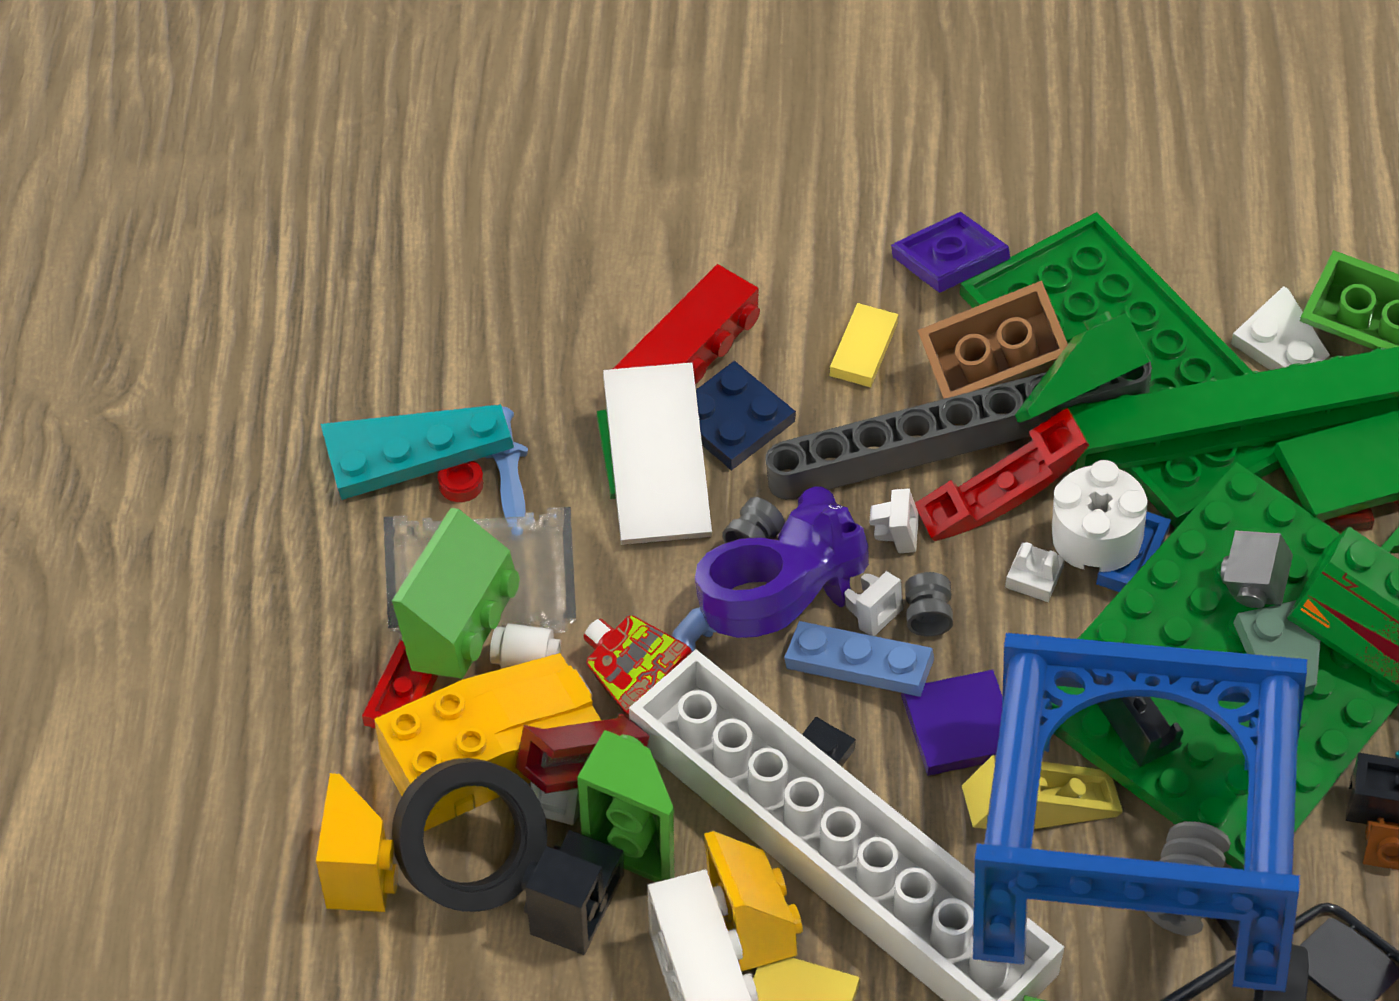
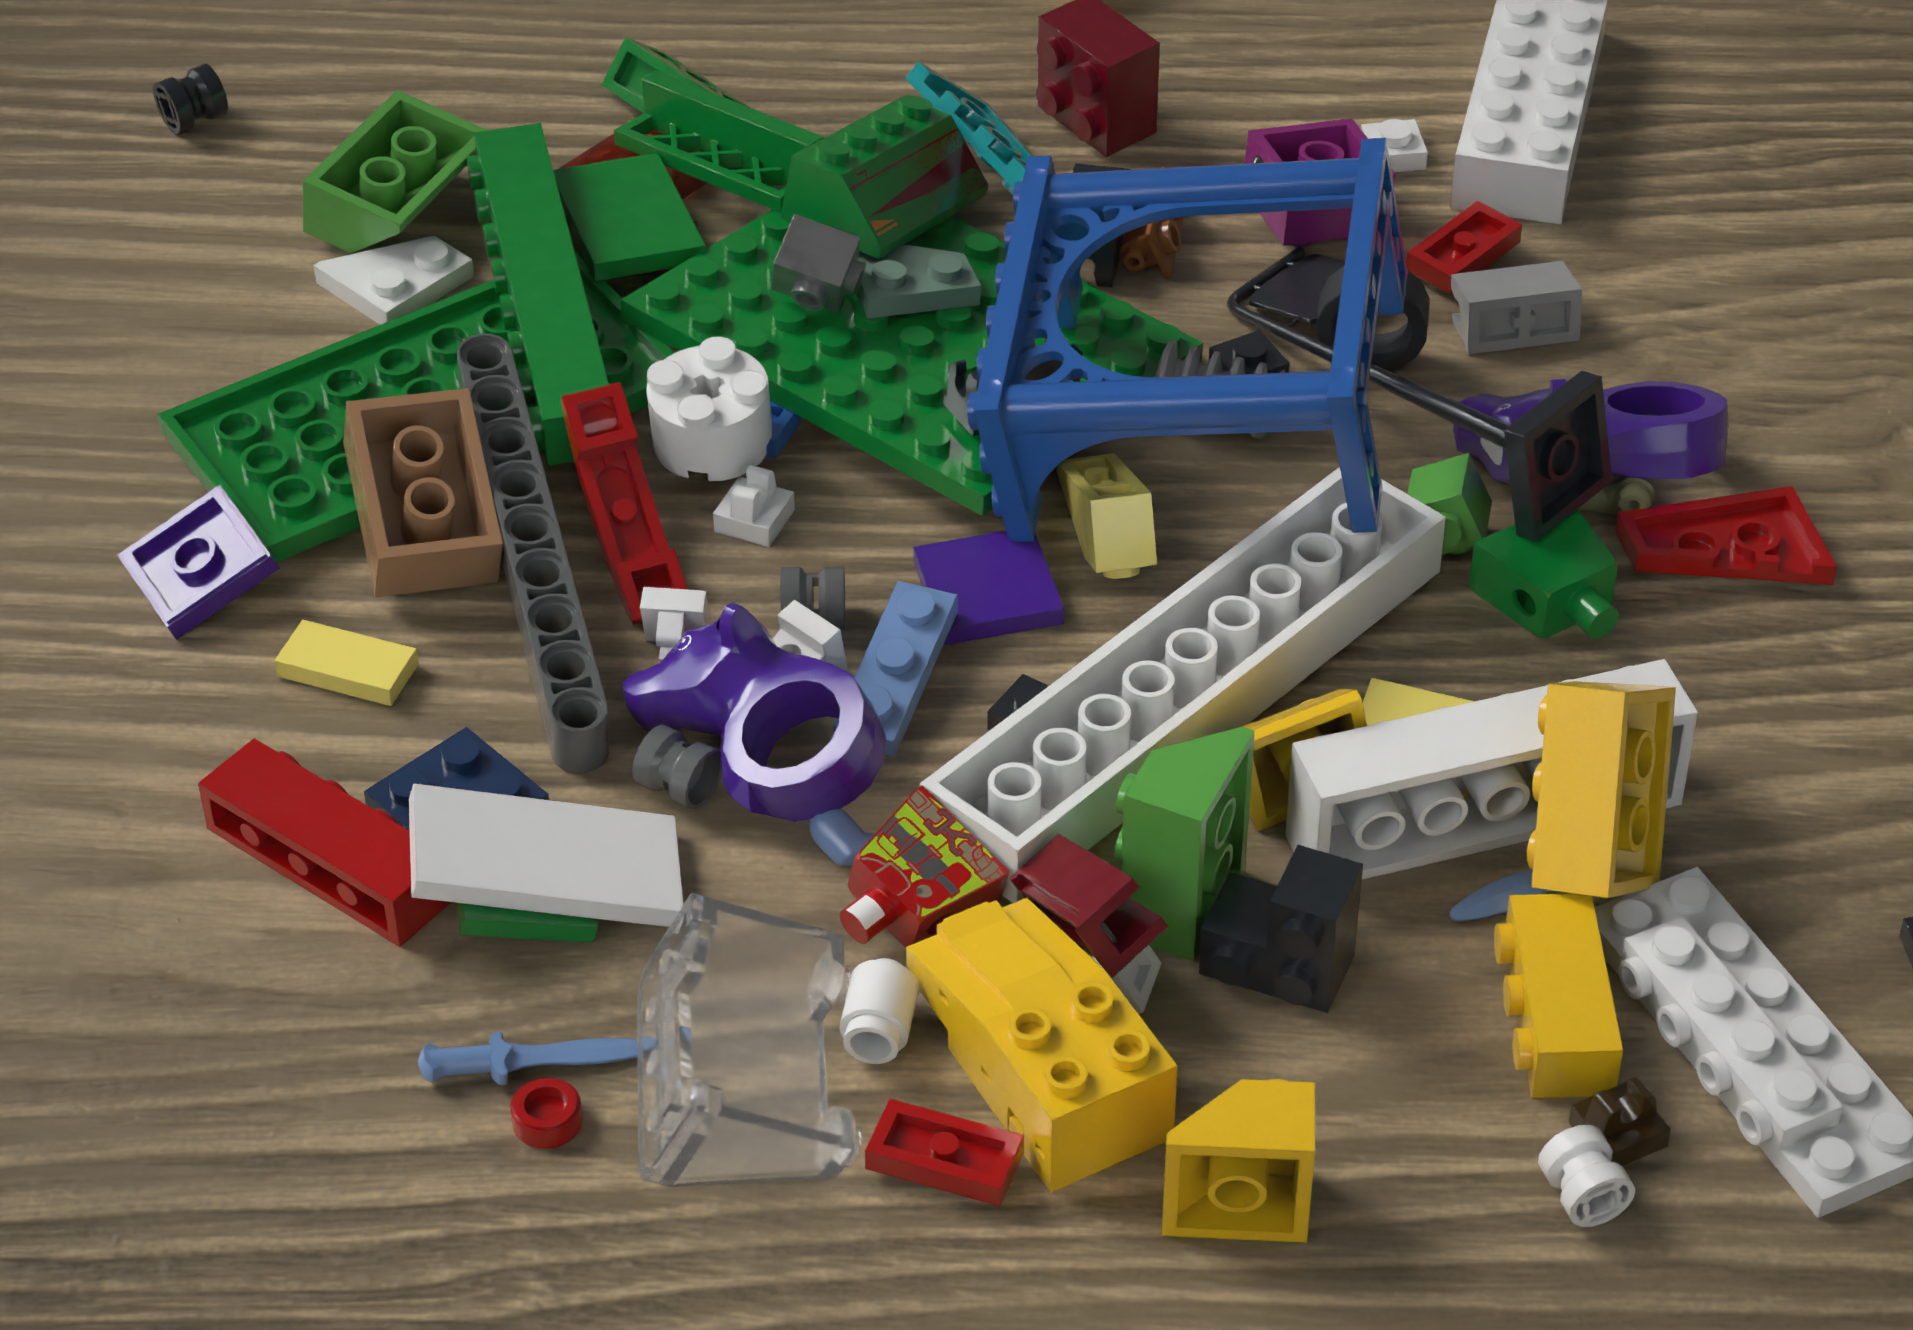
camera: 90 degrees left, 10 degrees down
(403, 447) = (489, 1174): teal wing -> none
(410, 820) = (1222, 1013): black tyre -> none
(454, 596) = (826, 1053): bright green slope -> none
(1089, 360) = (506, 371): green slope -> none

